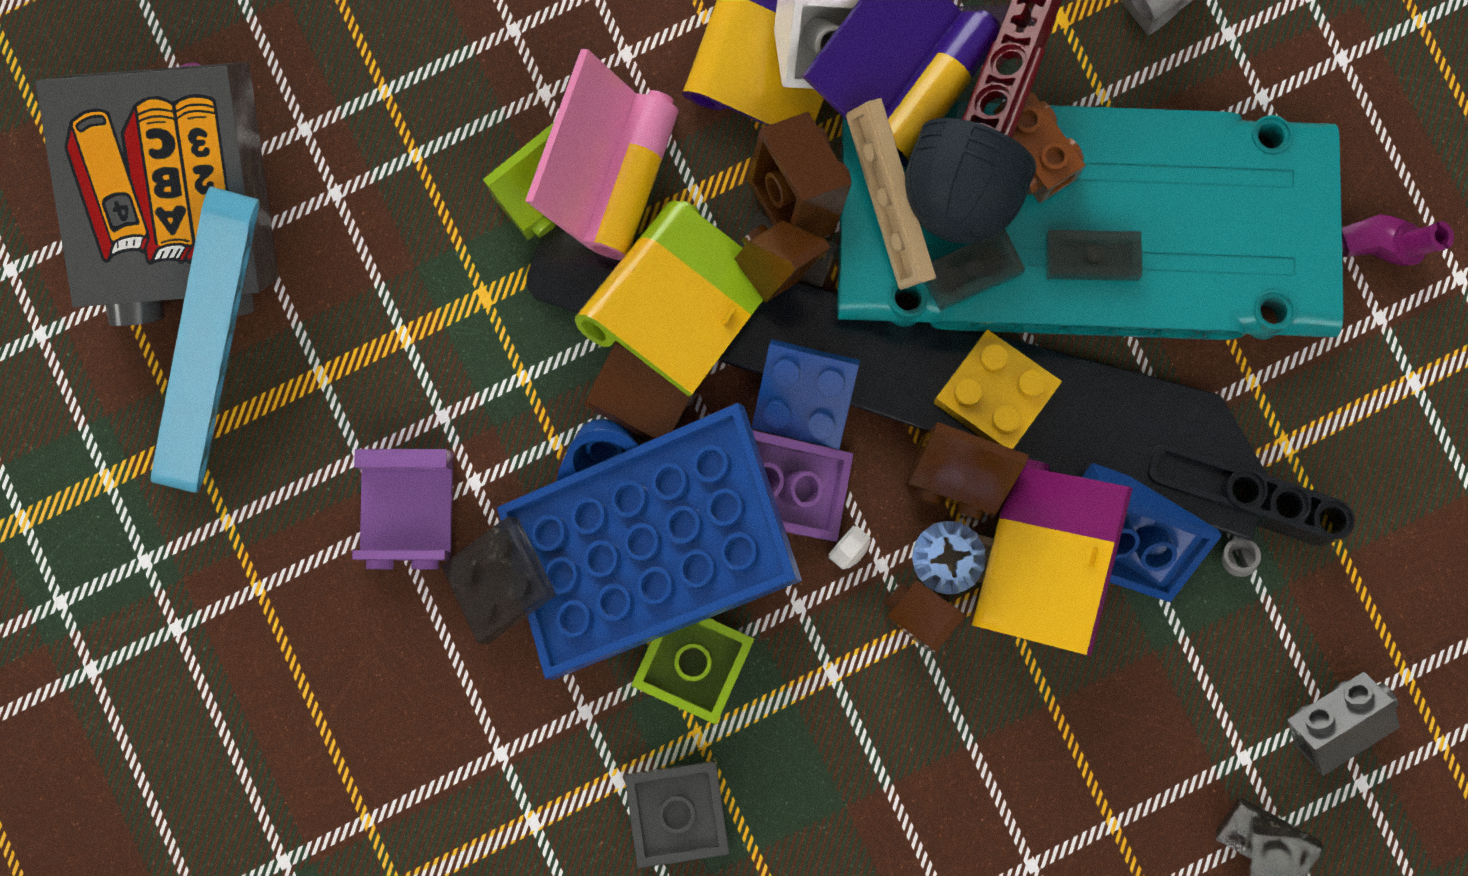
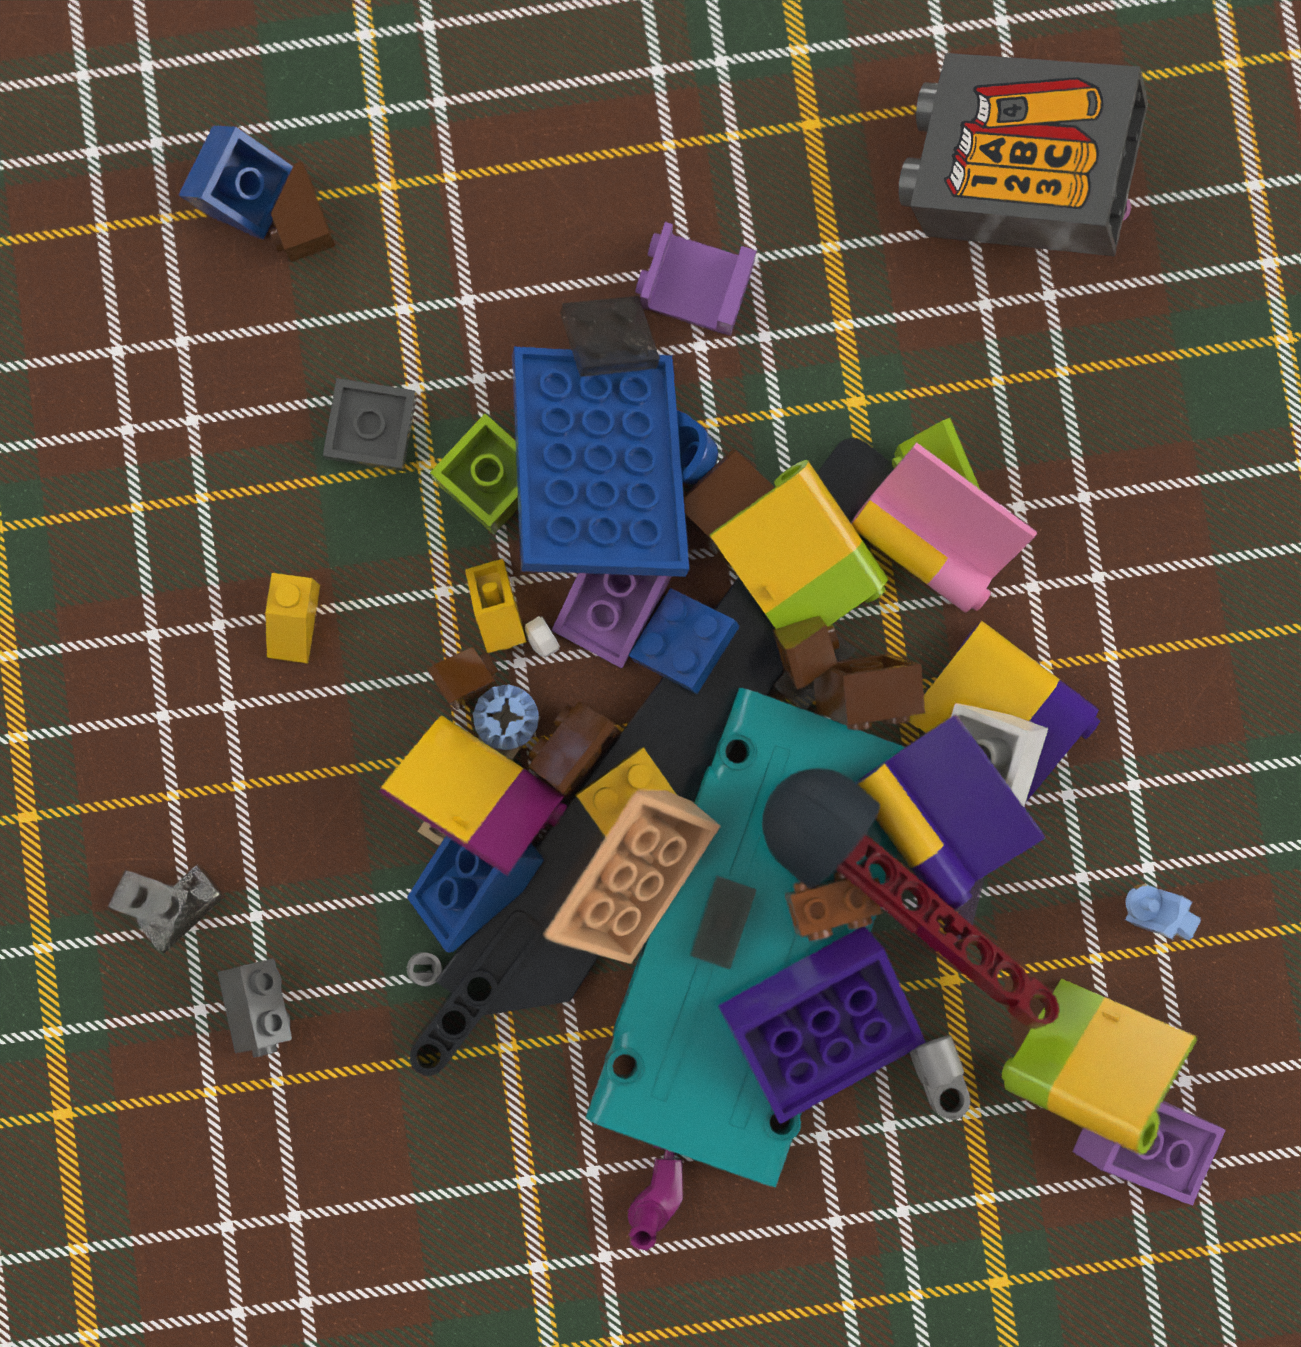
camera: 110 degrees right, 0 degrees up
(204, 338) = (885, 151): medium azure beam -> none
(832, 609) = (495, 606): none -> yellow slope
(888, 194) = (831, 756): tan tile -> none
(917, 828) = (290, 617): none -> yellow slope
(974, 270) = (741, 810): clear smoke plate -> none
(1082, 353) = (634, 875): none -> light nougat slope
(1160, 122) = (822, 1023): none -> dark purple slope

